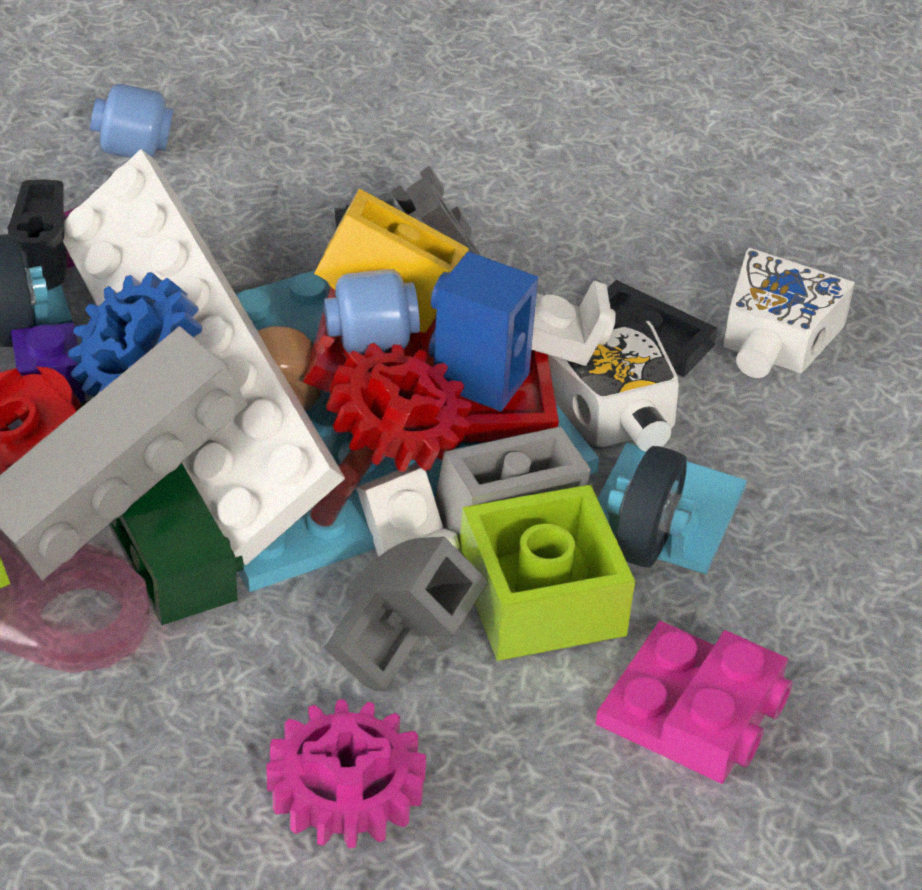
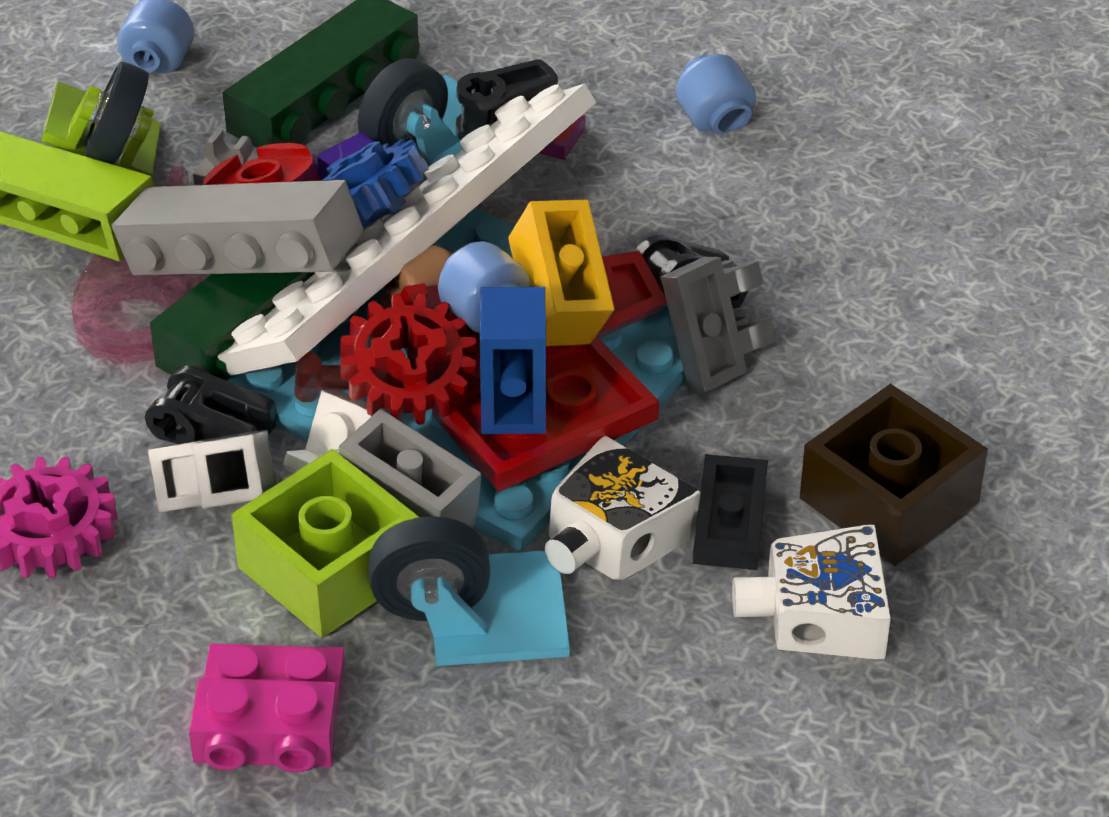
camera: 65 degrees right, 0 degrees up
(287, 599) = (207, 408): none -> black piece
(573, 330) = (613, 423): white bracket -> none
(687, 218) = (894, 470): none -> dark brown brick

